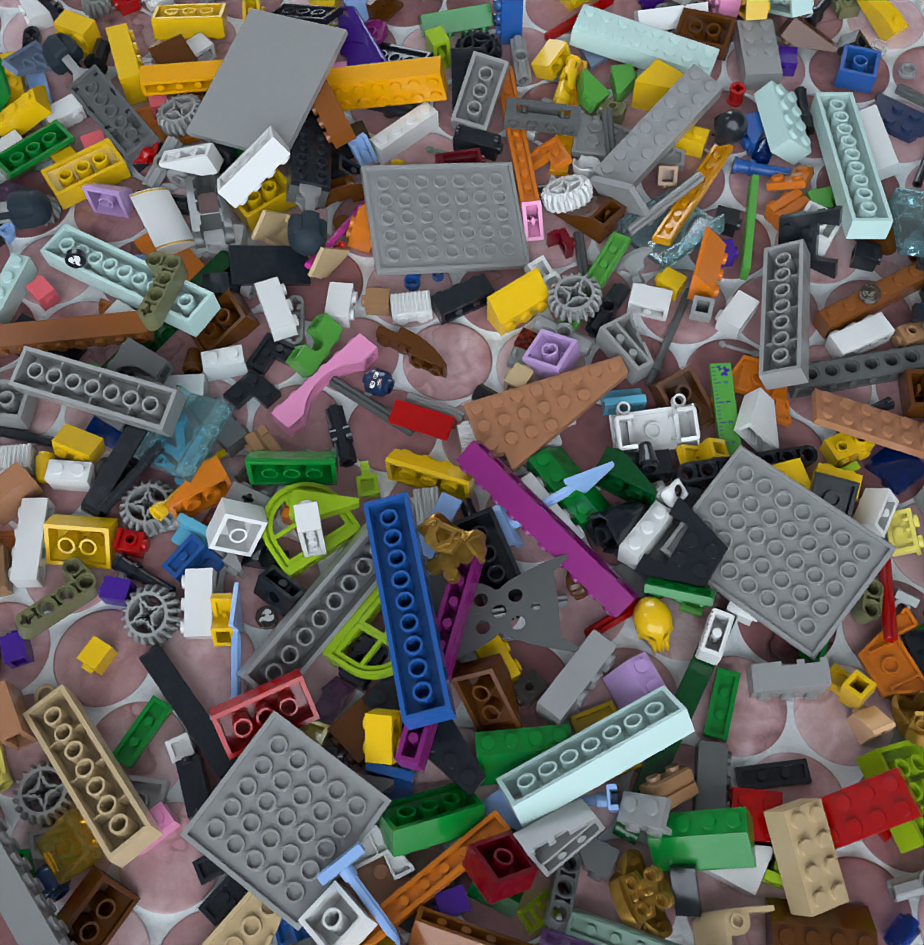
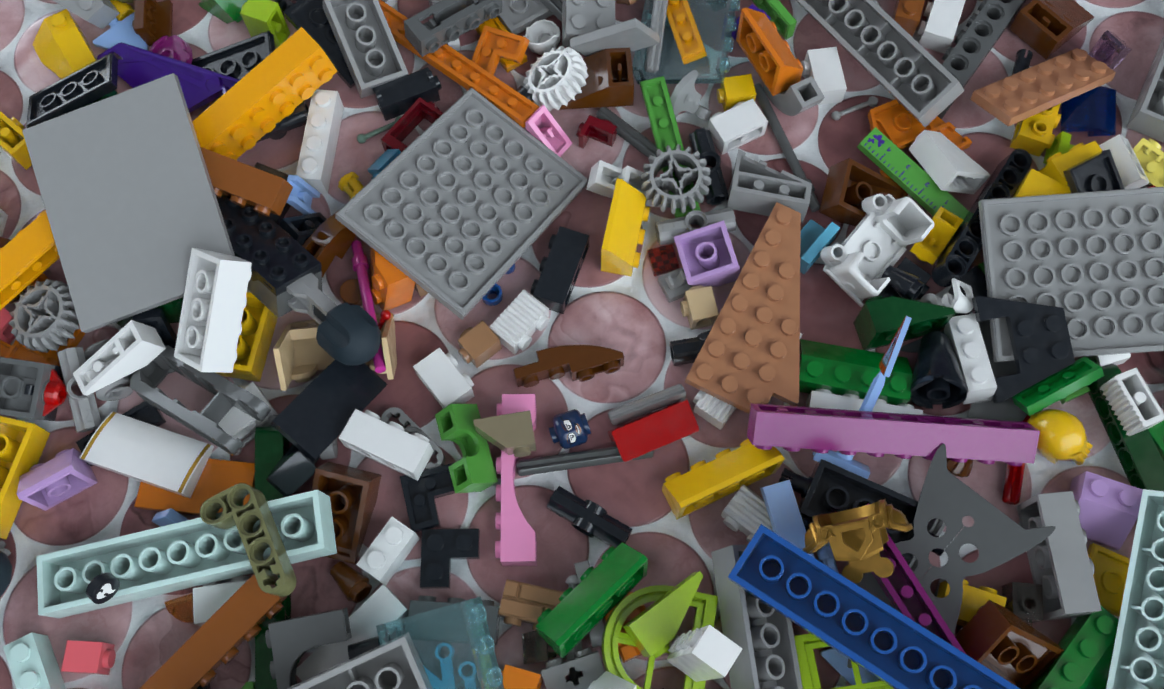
camera: 45 degrees left, 5 degrees up
(341, 352) = (509, 432): none -> dark tan slope
(367, 483) = (668, 544): lime plate -> none

